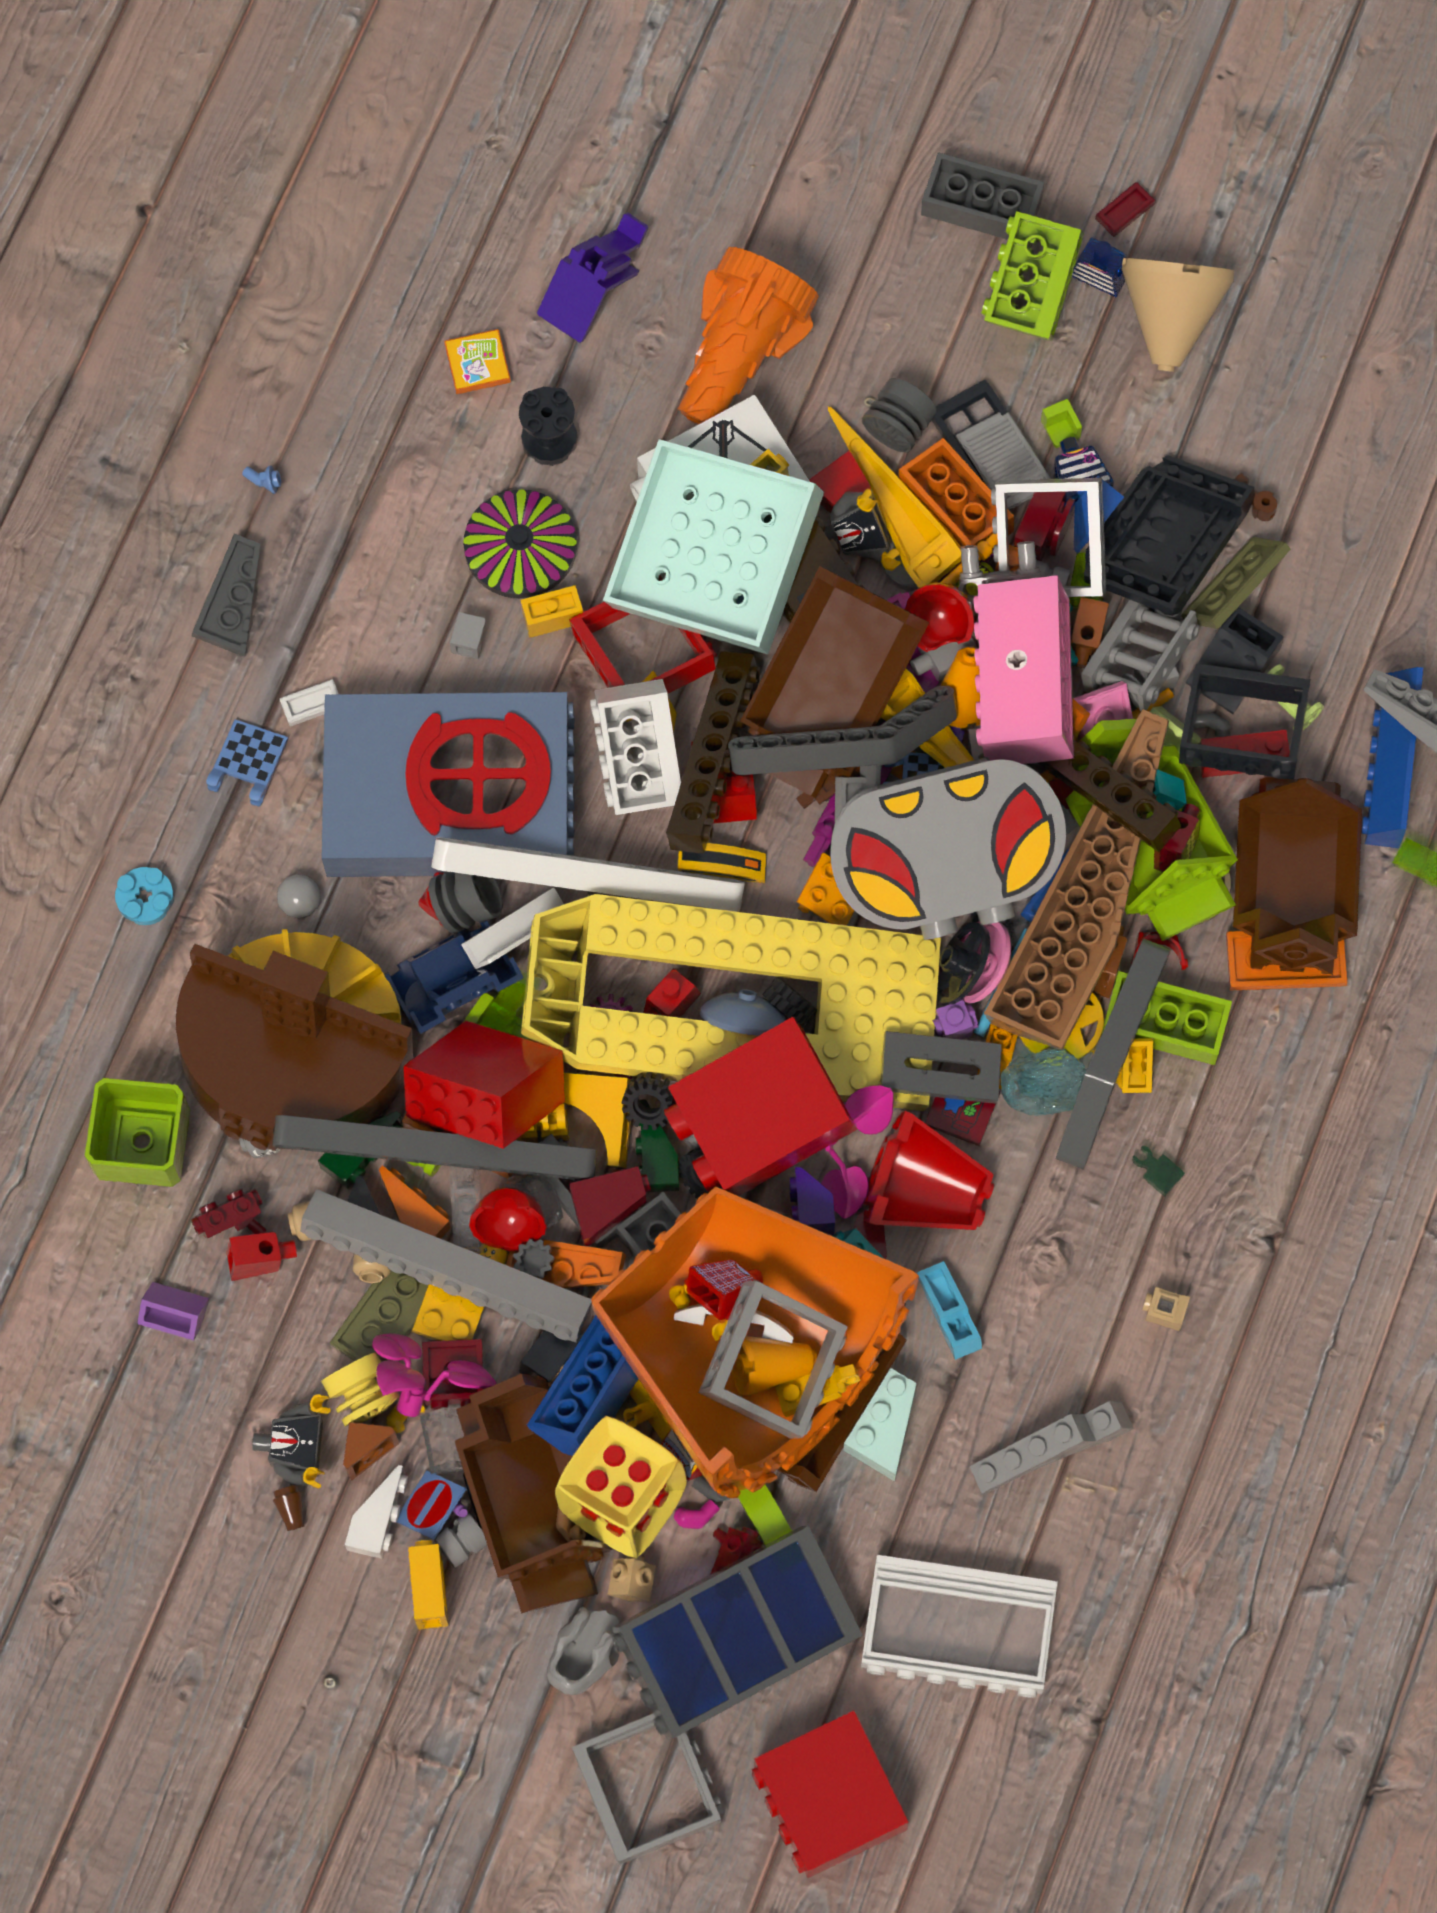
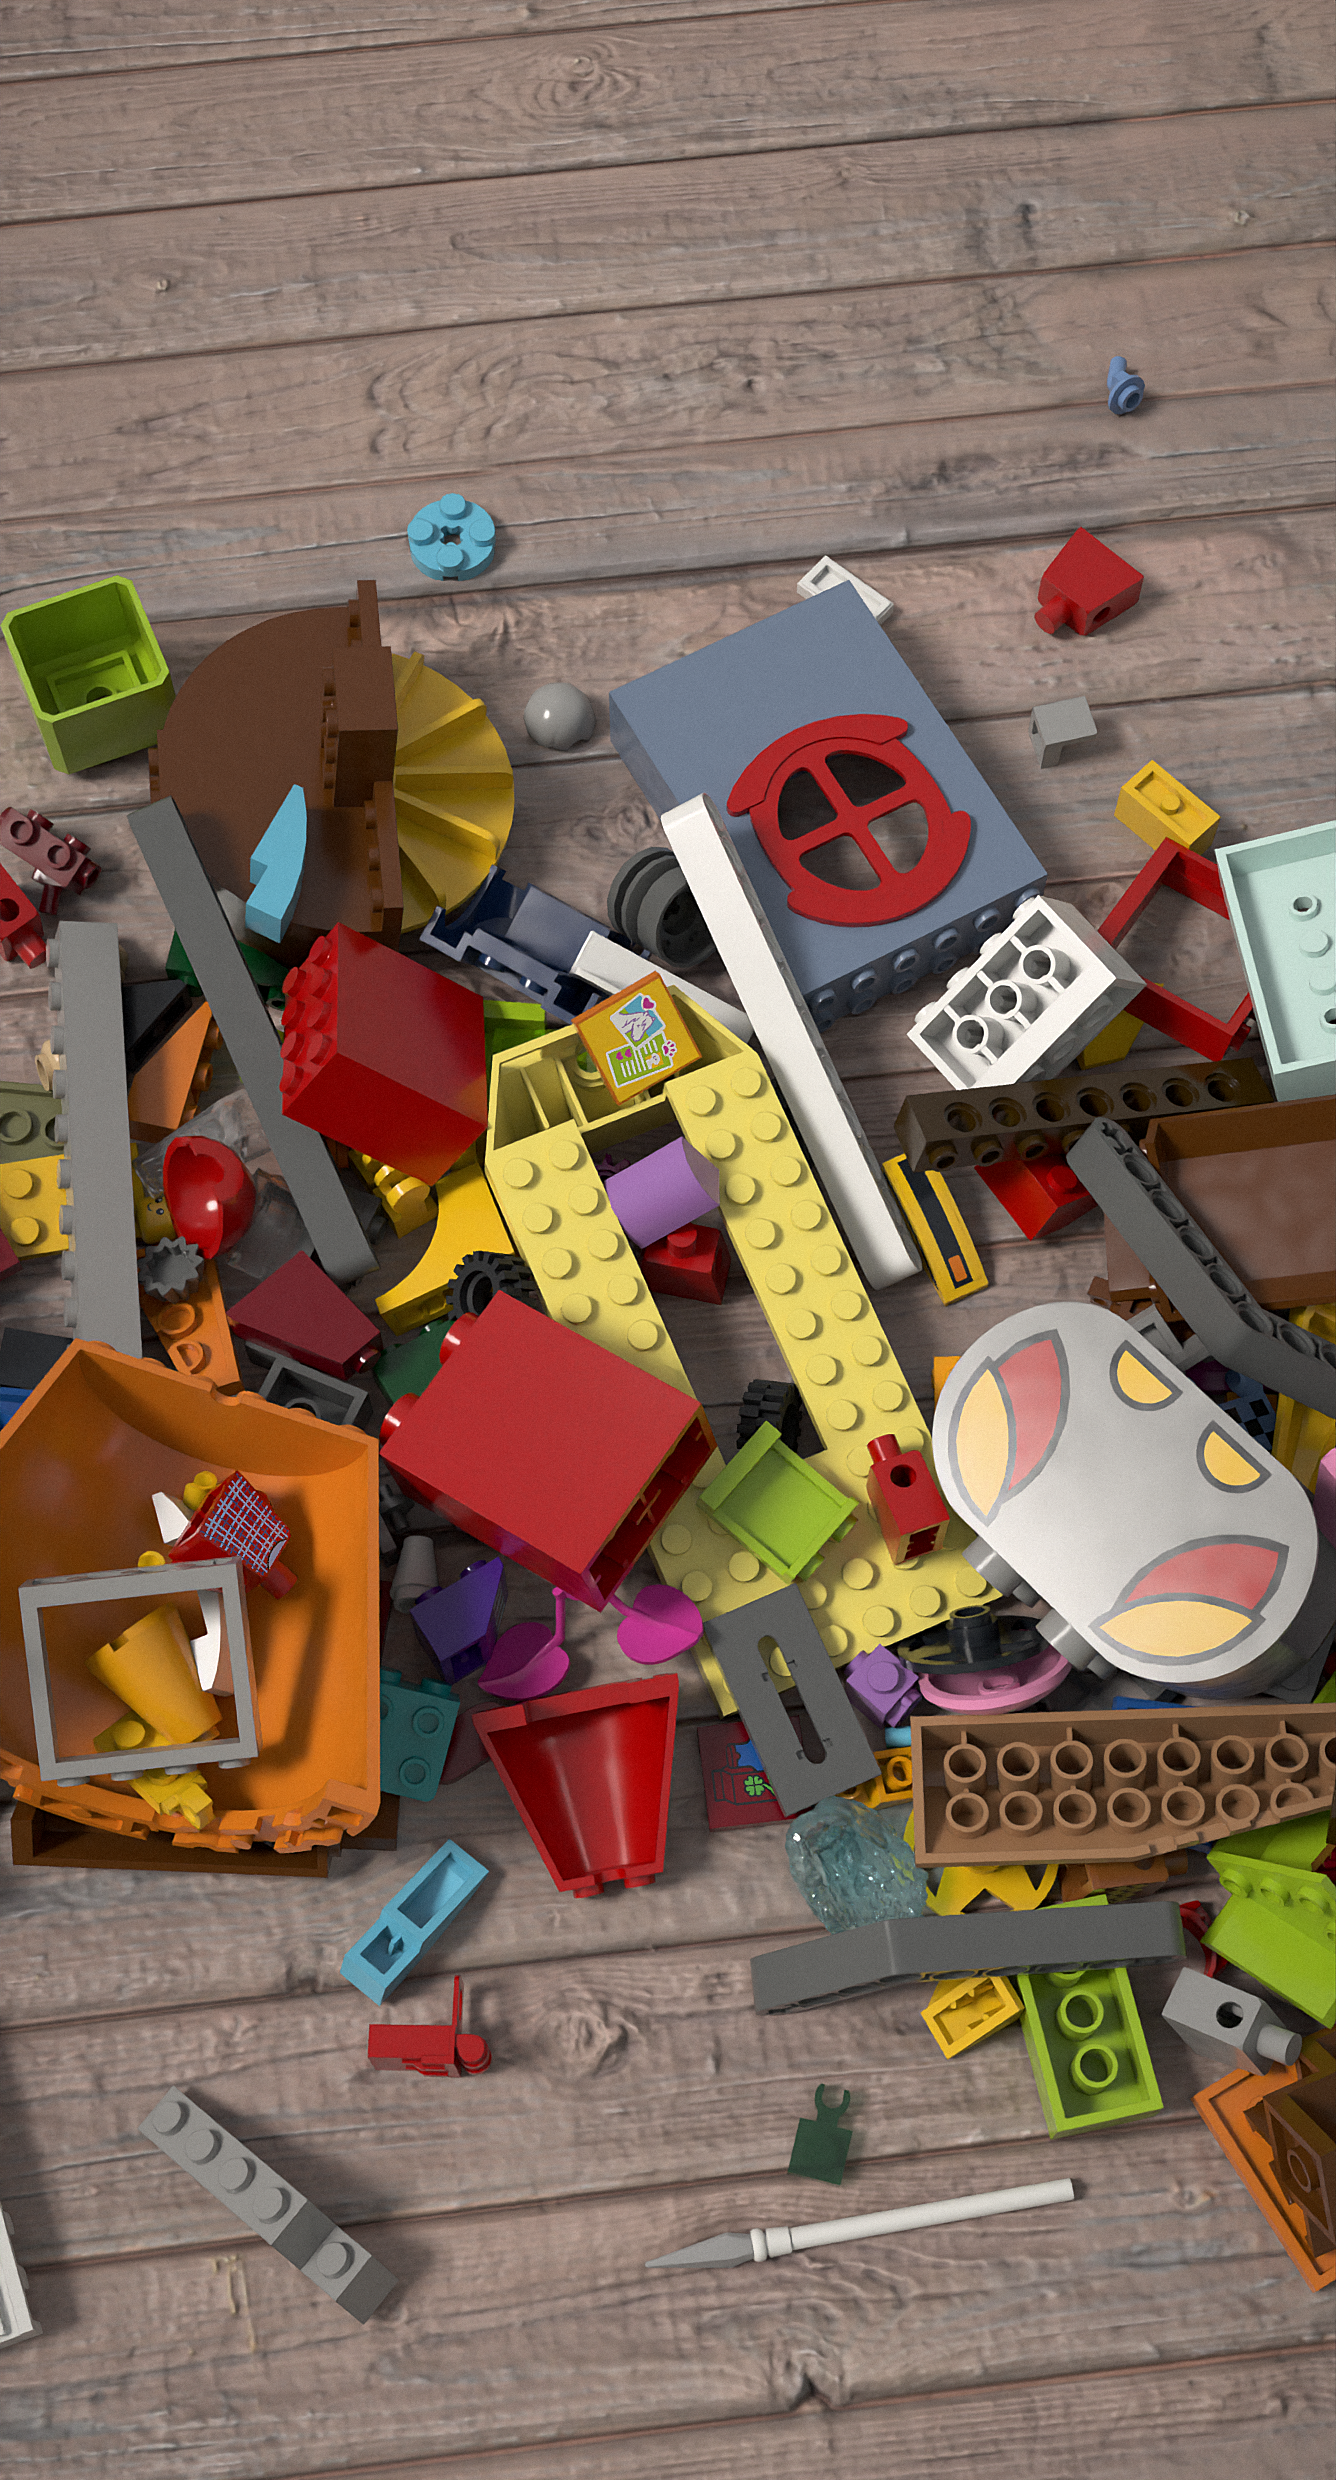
camera: 60 degrees right, 5 degrees down
(229, 603) = (922, 432): dark grey wing -> none
(249, 756) = (719, 564): medium blue flag -> none
(347, 1080) = (278, 869): none -> medium azure slope
(383, 572) = (1086, 586): none -> red torso
(520, 543) = (1242, 732): dish -> none
(553, 949) = (636, 1038): none -> tile
(647, 982) = (663, 1192): none -> medium lavender brick
(742, 1013) = (704, 1362): sand blue dish -> none
(843, 1017) = (778, 1506): none -> lime panel
(875, 954) = (905, 1500): none -> red torso
(883, 1425) = (172, 1913): light aqua wedge -> none
(1020, 1331) = (430, 2048): none -> red piece
(1166, 1308) = (593, 2271): tan window -> none
(1192, 1225) = (736, 2248): none -> white piece
(1210, 949) = (1229, 2024): none -> light grey torso

